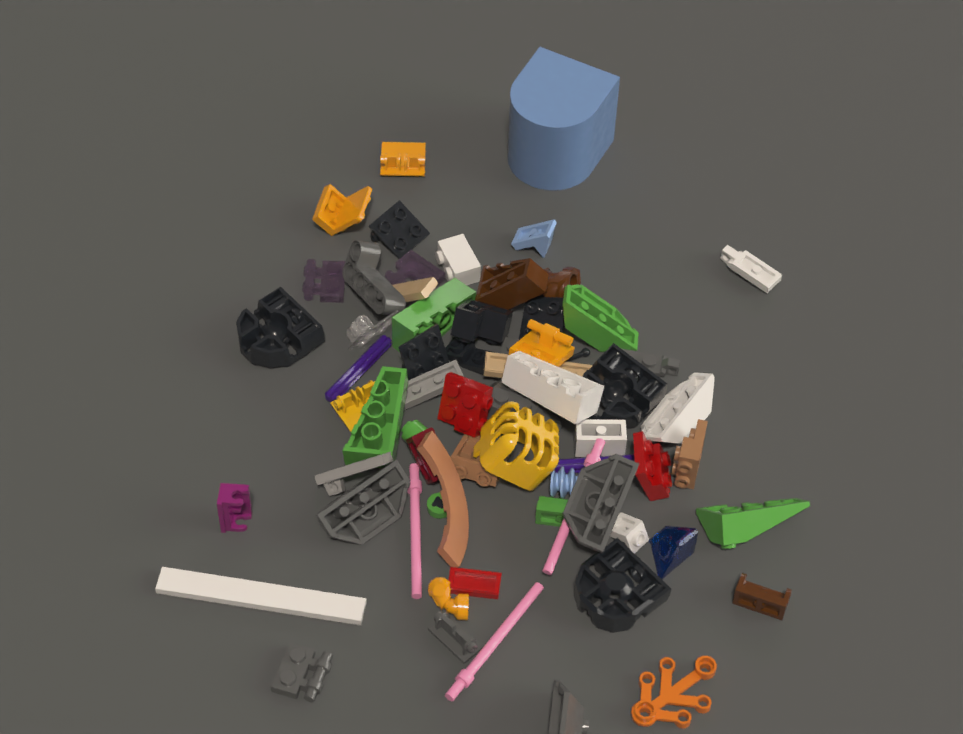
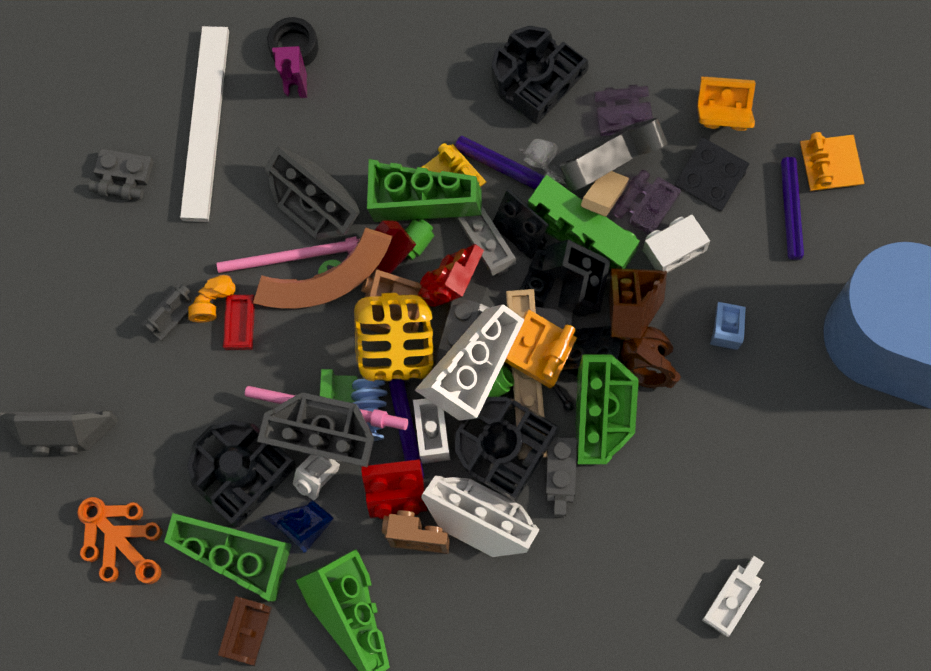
camera: 90 degrees right, 20 degrees up
(199, 529) = (294, 25): none -> black tyre
(334, 480) = (351, 176): light grey hinge -> none
(437, 188) = (792, 208): none -> dark purple axle
(466, 676) = (124, 327): bright pink bar -> none
(697, 590) = (239, 555): none -> bright green wedge

